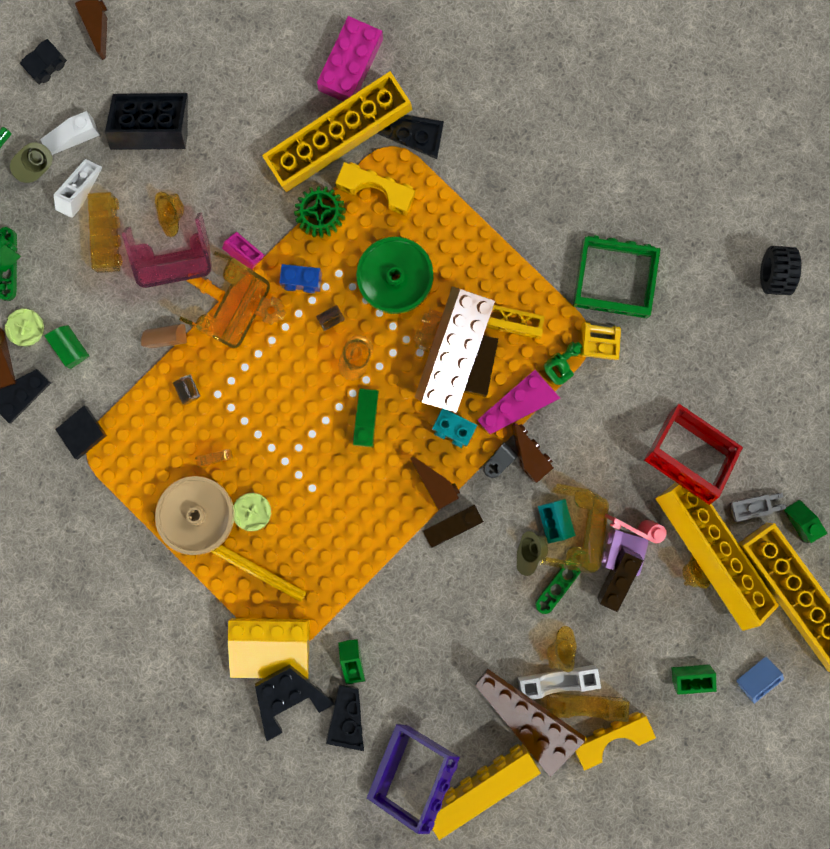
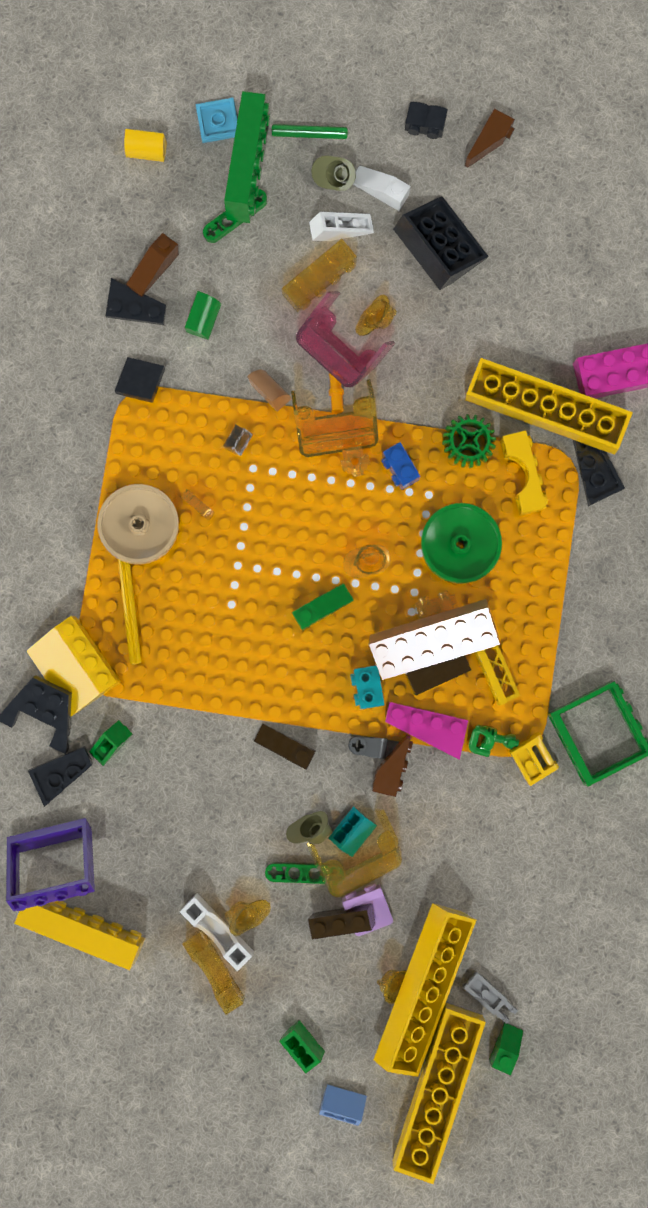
camera: 60 degrees right, 0 degrees up
(24, 327) = (193, 269): yellowish green tile -> none
(242, 250) = (388, 401): dark pink slope -> none
(252, 511) = (175, 569): yellowish green tile -> none
(328, 315) = (383, 512): clear smoke piece -> none
(438, 487) = (308, 709): reddish brown slope -> none
(539, 730) = (165, 941): wing -> none
(636, 730) = (181, 999): yellow arch -> none
(647, 529) = (401, 915): coral door -> none
(682, 474) = (469, 911): red window -> none

